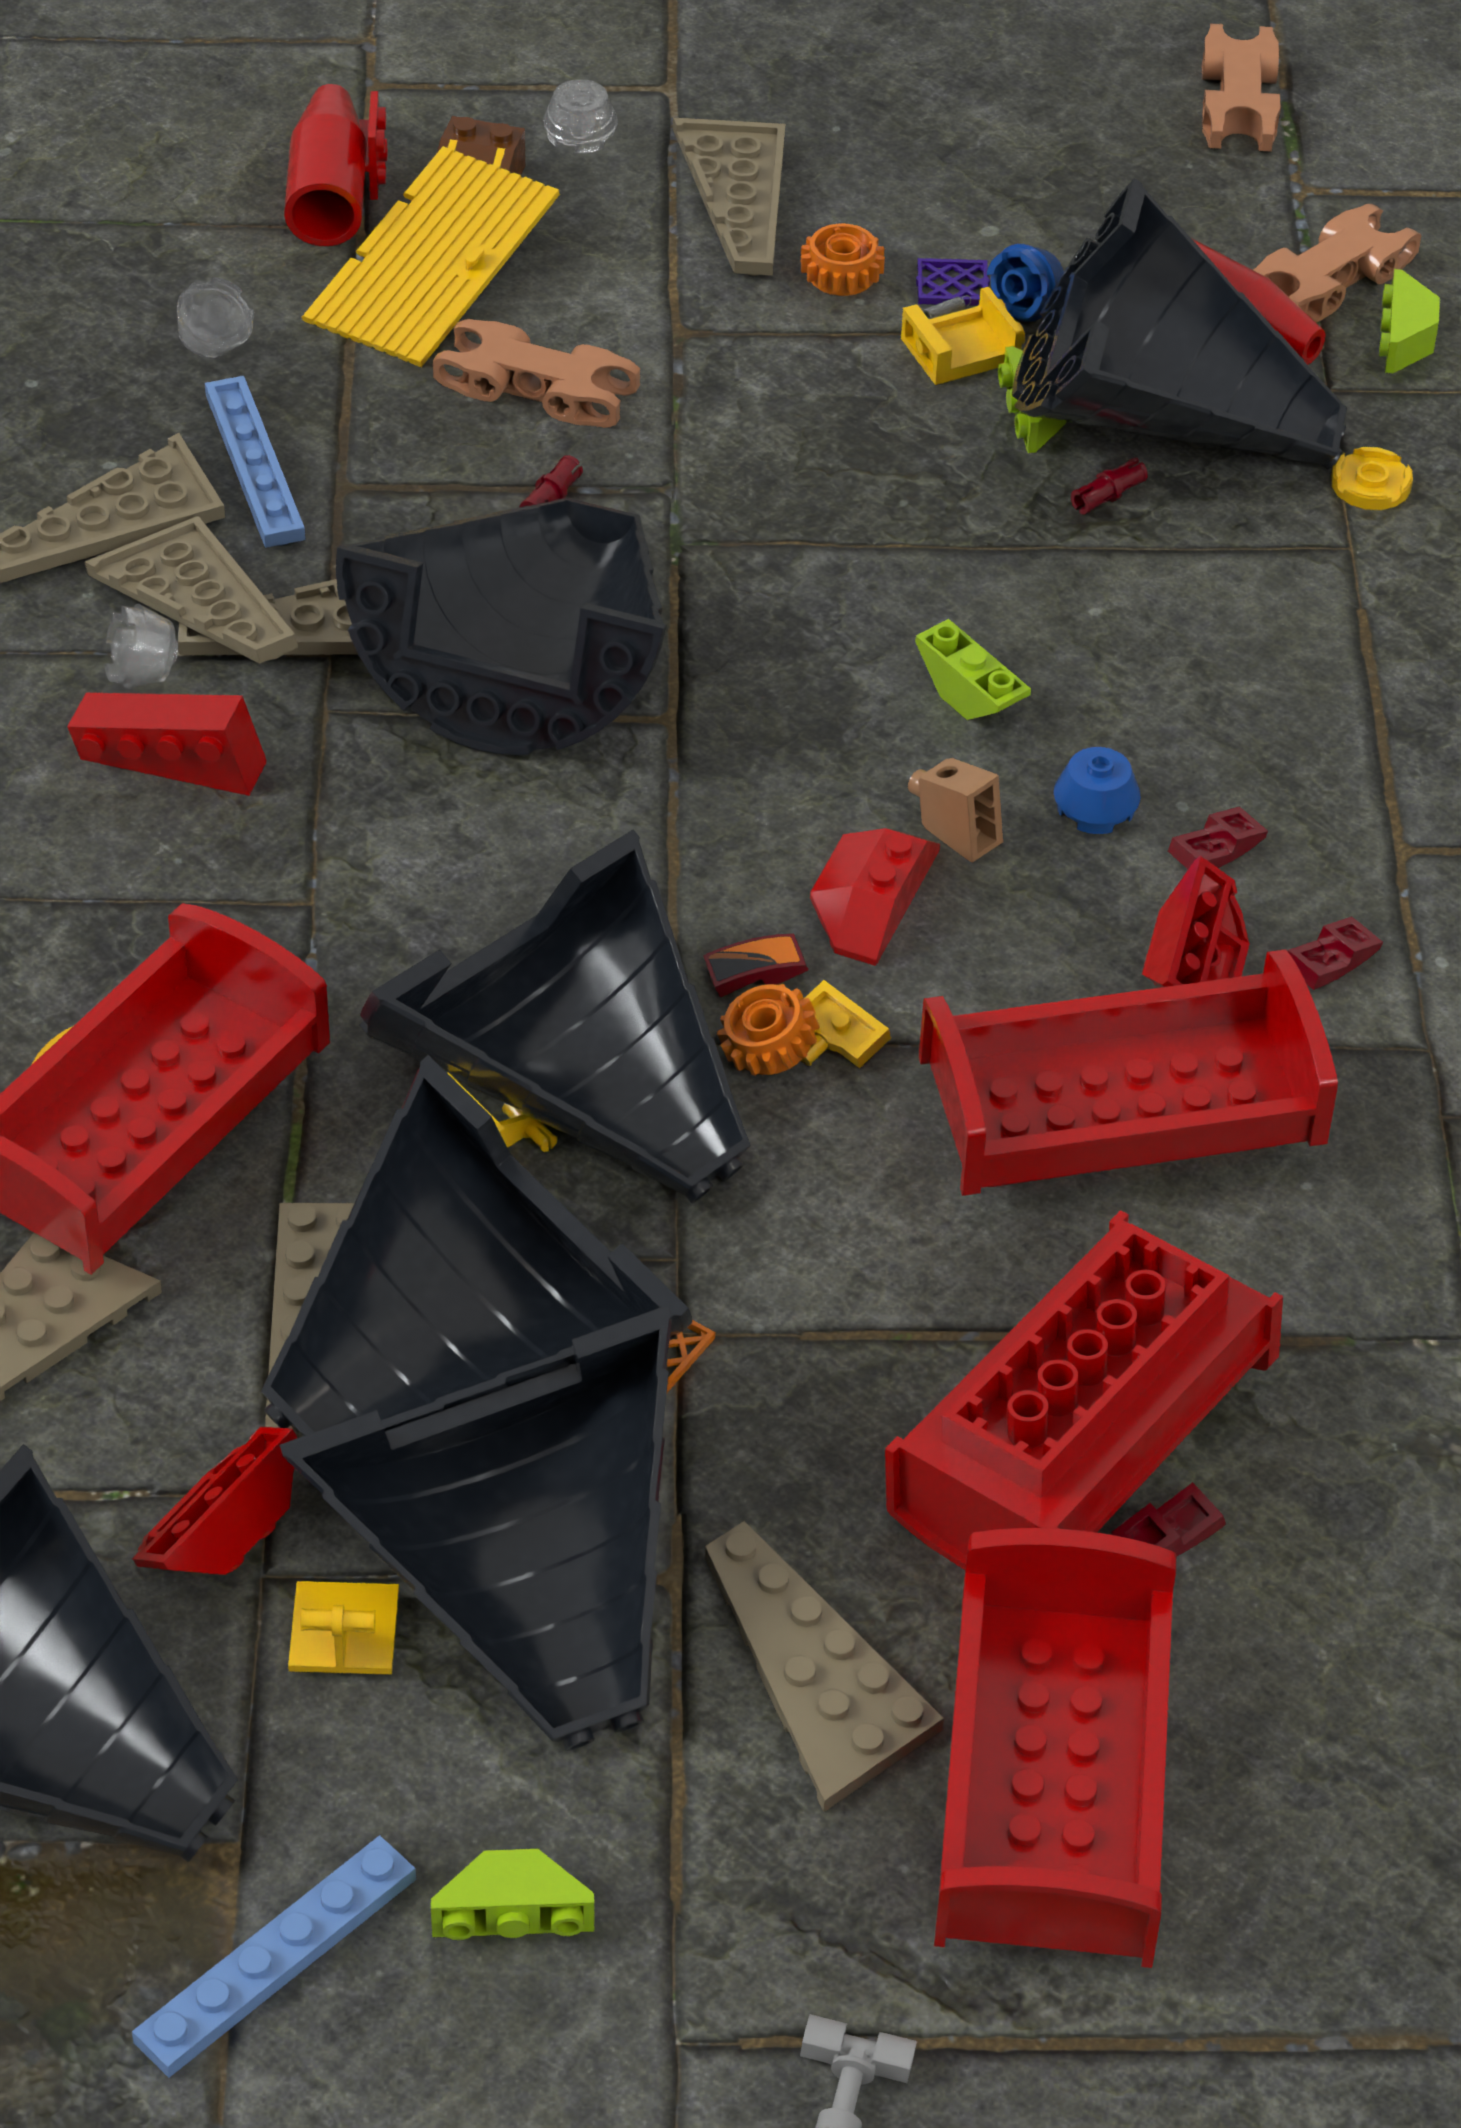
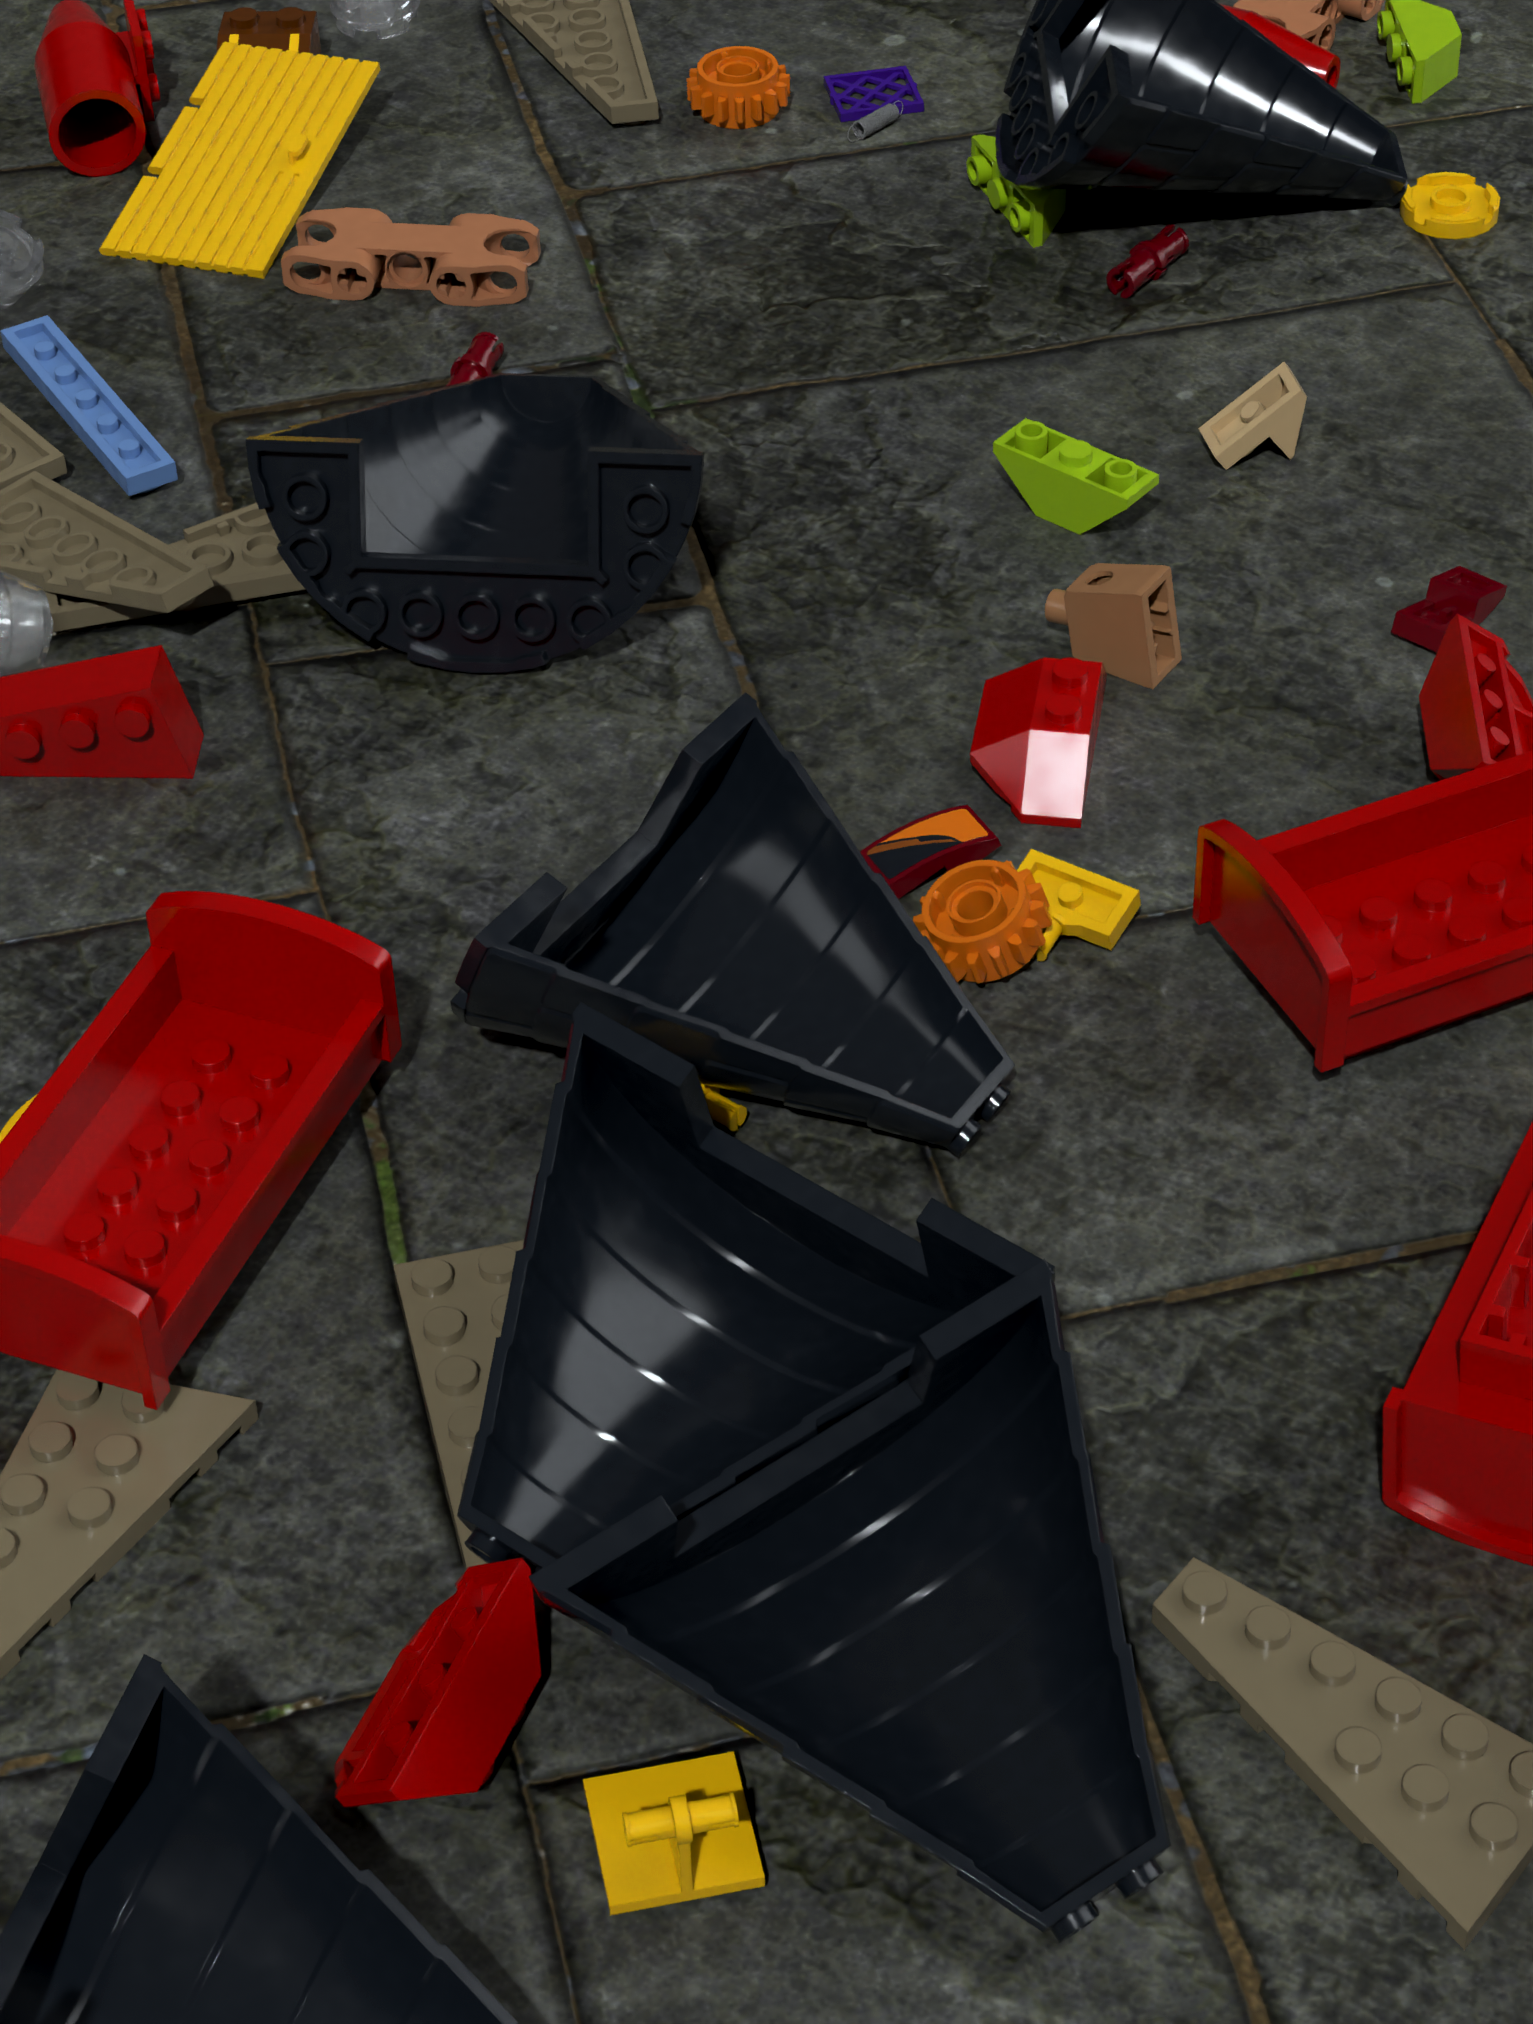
camera: 10 degrees left, 5 degrees down
(962, 340) = (912, 146): yellow panel -> none
(1024, 279) = (965, 71): blue cone -> none
(1097, 790) = (1280, 576): blue cone -> none
(1133, 647) = (1265, 410): none -> tan slope

